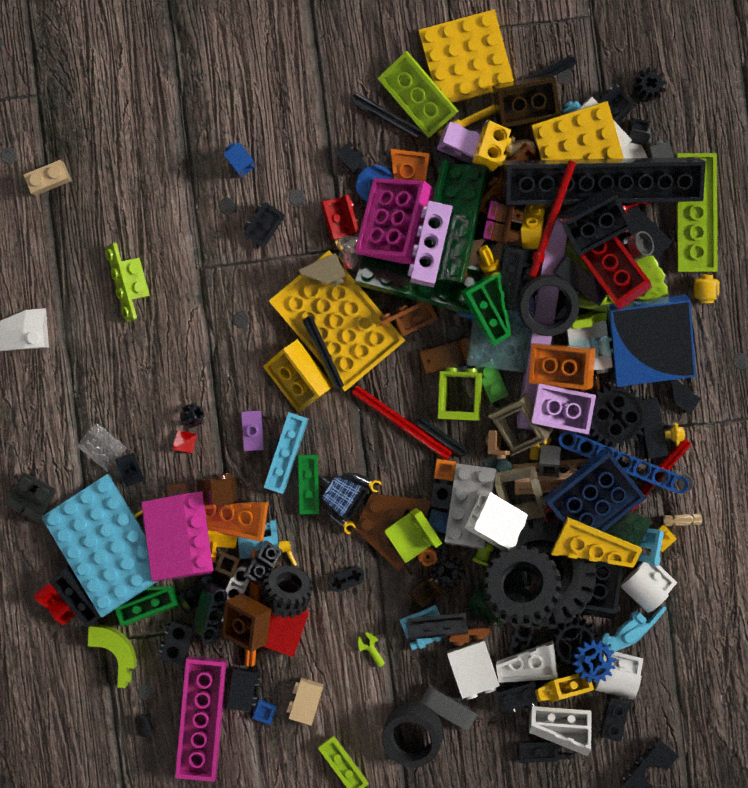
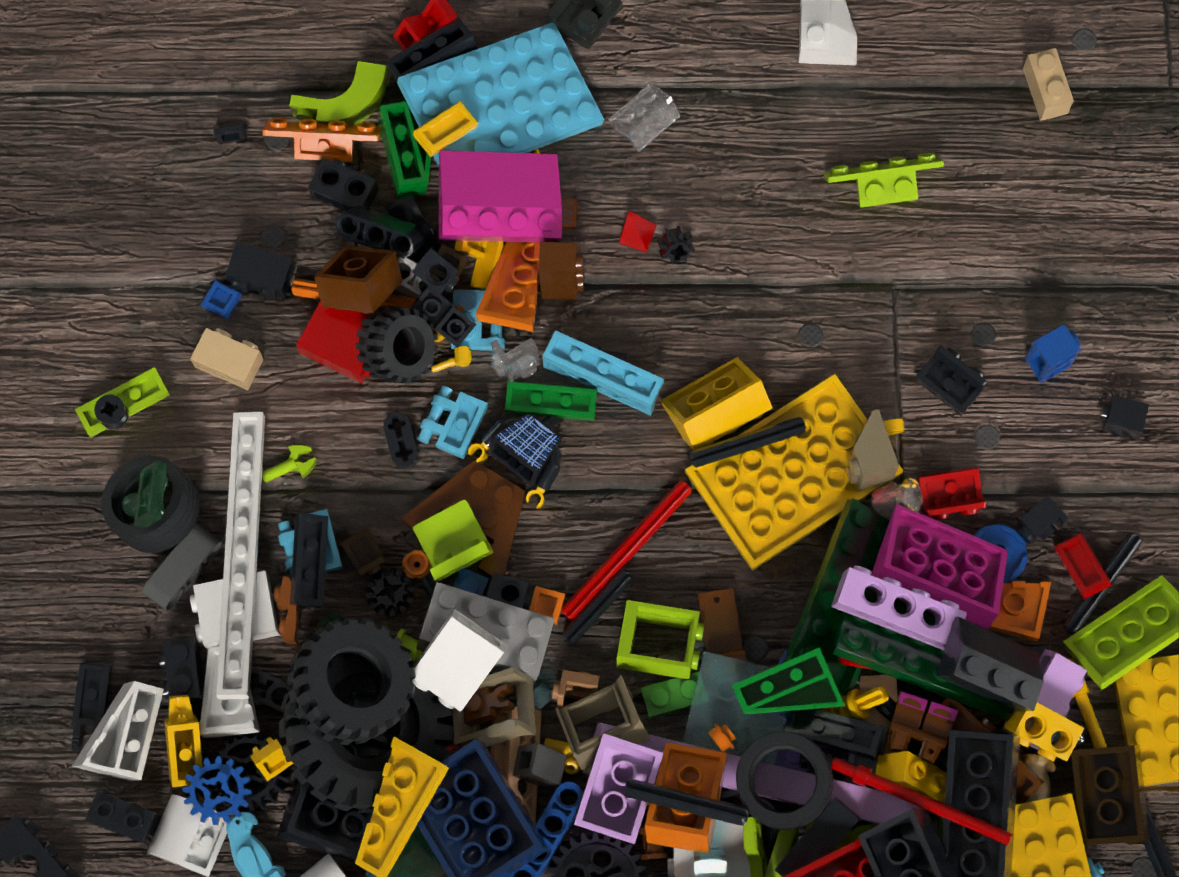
camera: 100 degrees right, 15 degrees down
(129, 469) = (607, 150): black bracket -> none
(134, 579) = (445, 128): none -> yellow tile
(146, 661) = (322, 140): none -> orange bracket
(201, 718) = (227, 206): dark pink brick -> none
(227, 572) = (432, 258): none -> black brick
(252, 430) = (642, 331): medium lavender plate -> none
(275, 109) = (1124, 417): none -> black brick
(287, 507) = (516, 363): none -> clear bracket
(300, 260) = (894, 426): none -> yellow tile
(333, 541) = (460, 426): none -> medium azure plate
(352, 767) = (114, 418): none -> black wheel
(377, 129) = (1082, 566): none -> red tile
(410, 318) = (786, 579): dark orange bracket -> none
(414, 736) = (148, 503): none -> clear green plate
(439, 670) = (240, 556): none -> white plate
(460, 181) = (991, 666): none -> black slope
(516, 498) = (485, 703): none -> reddish brown plate
(521, 347) = (722, 737): none -> orange plate
(570, 365) = (686, 802): none -> black axle
(570, 631) = (270, 759): none -> yellow tile

